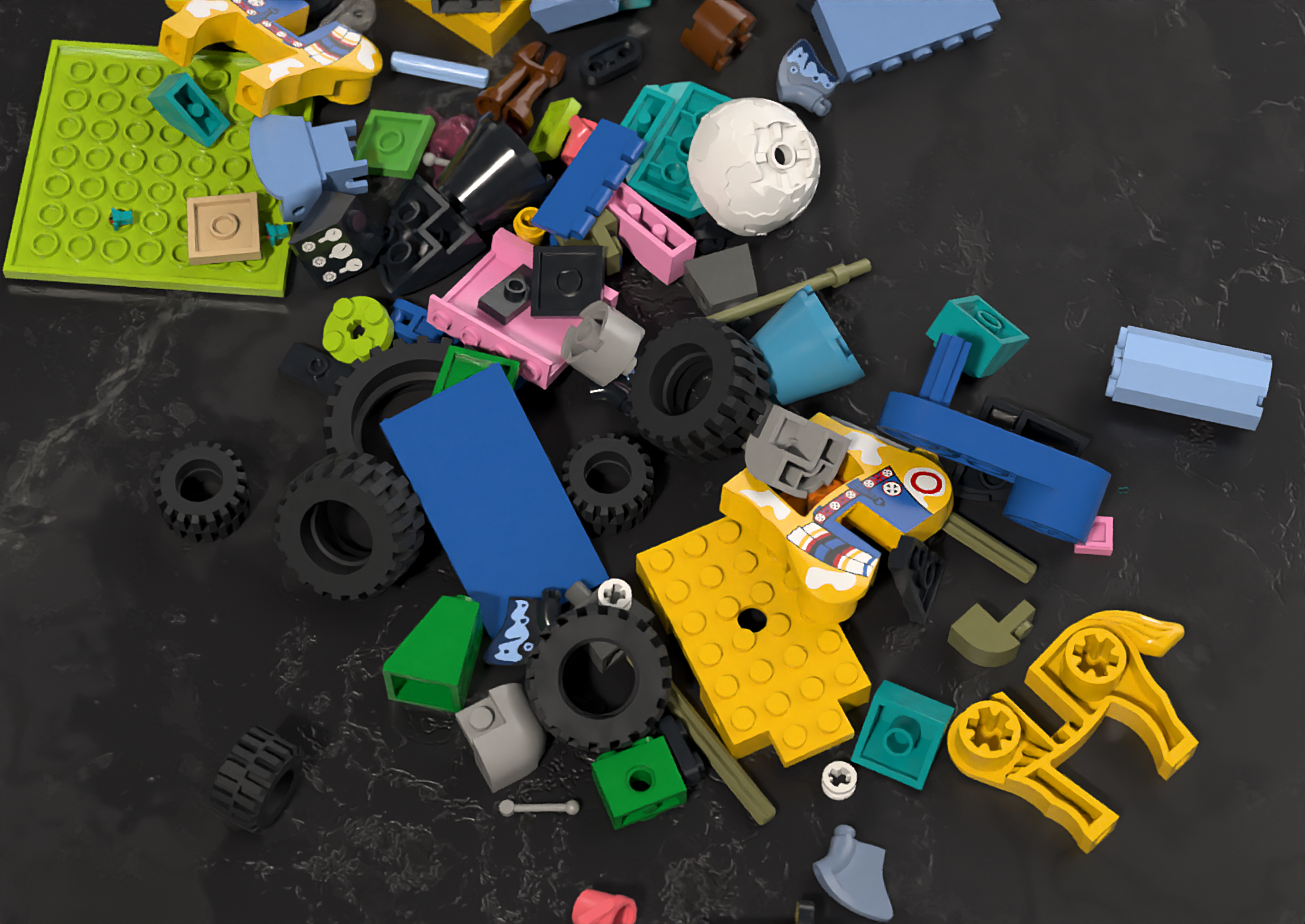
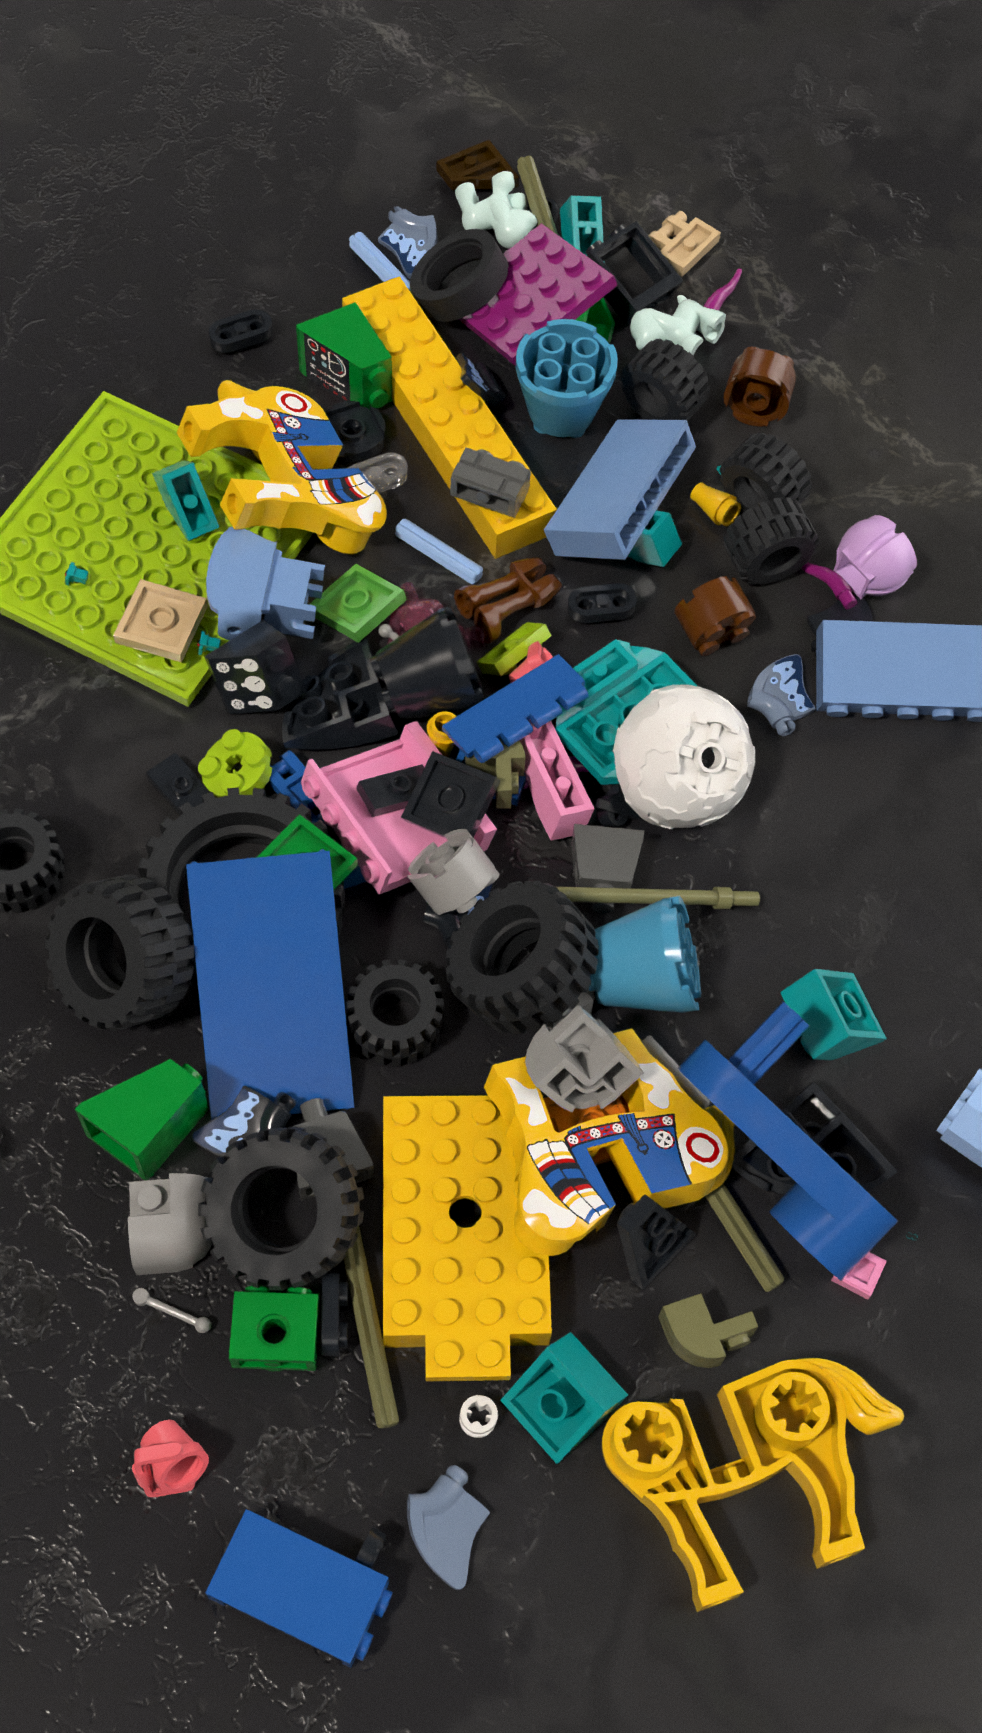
camera: 20 degrees right, 0 degrees up
(618, 585) = (338, 1119): white bush -> none

